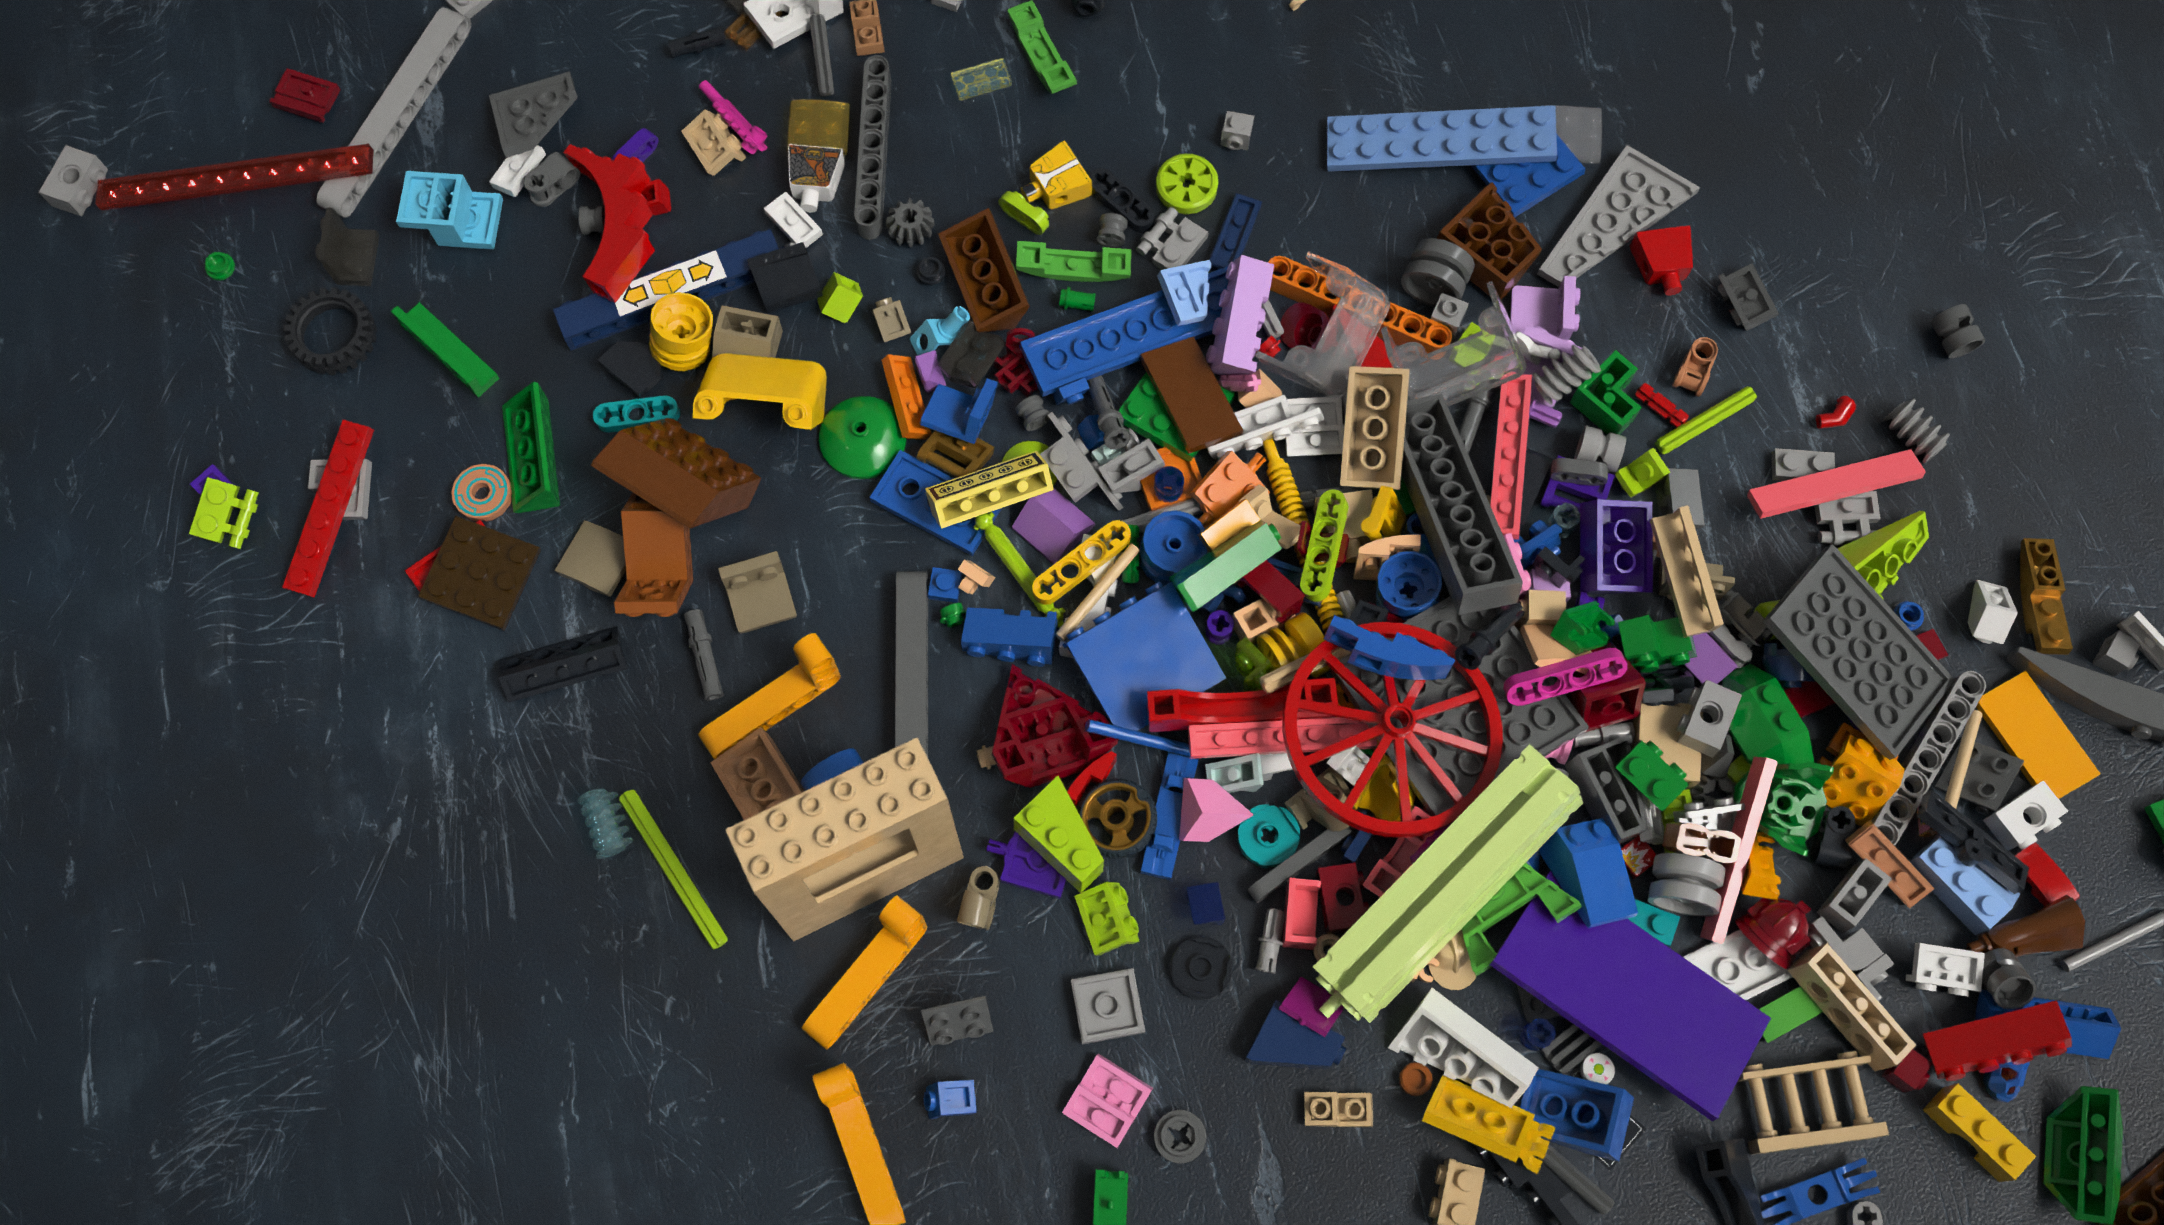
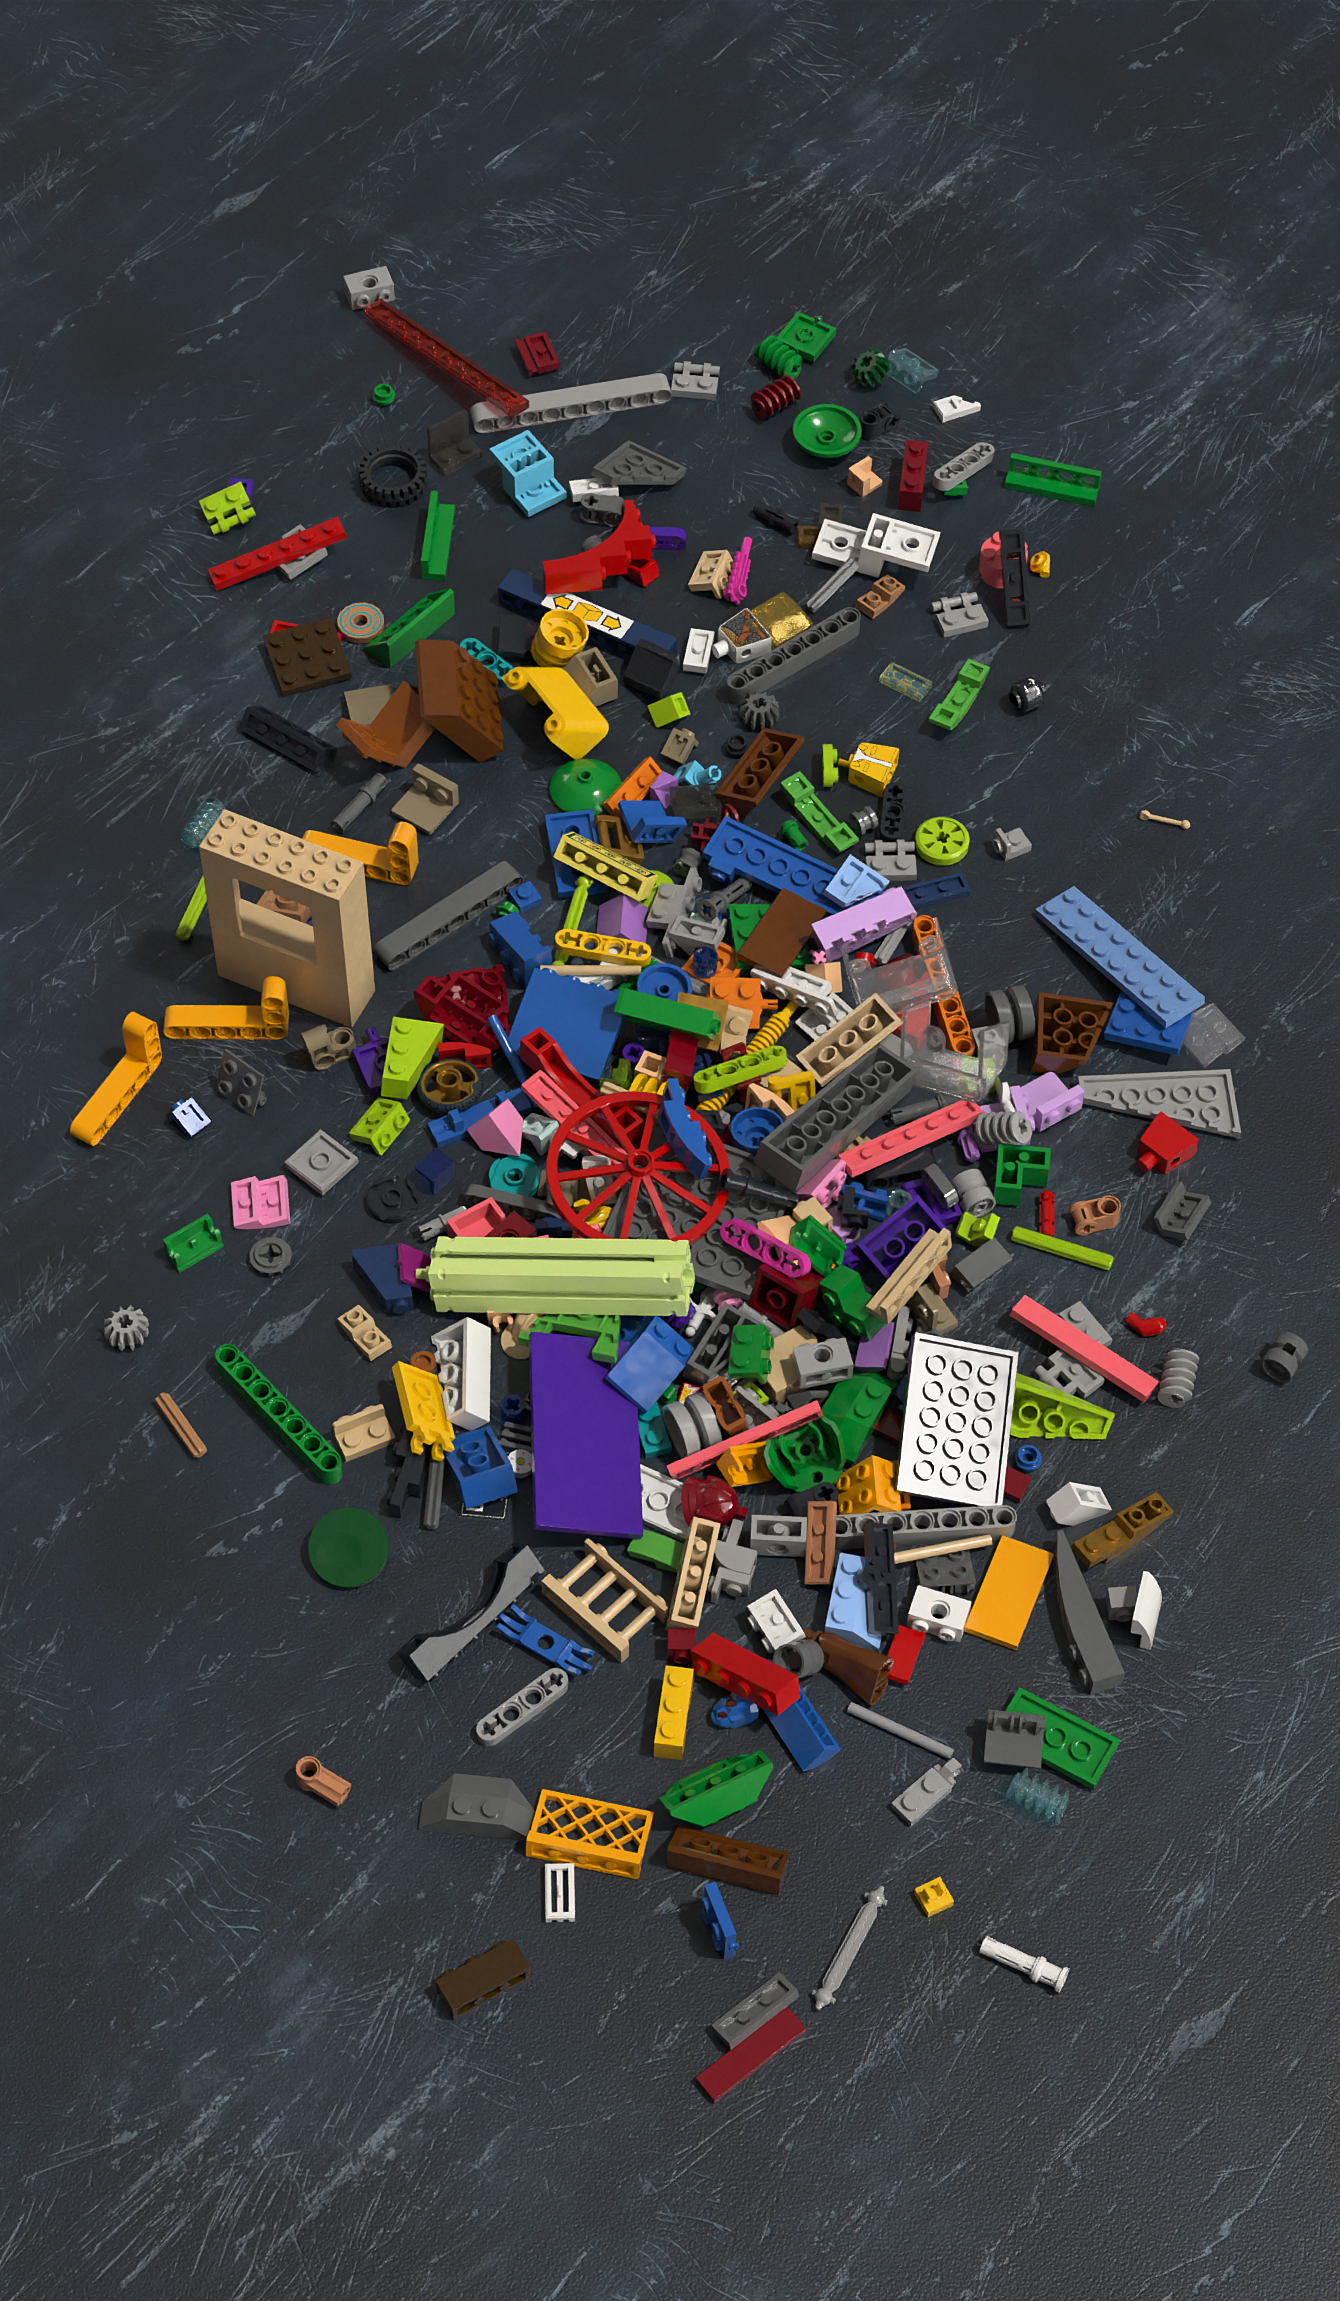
camera: 50 degrees right, 15 degrees down
(974, 576) = (543, 906): light nougat tile -> none

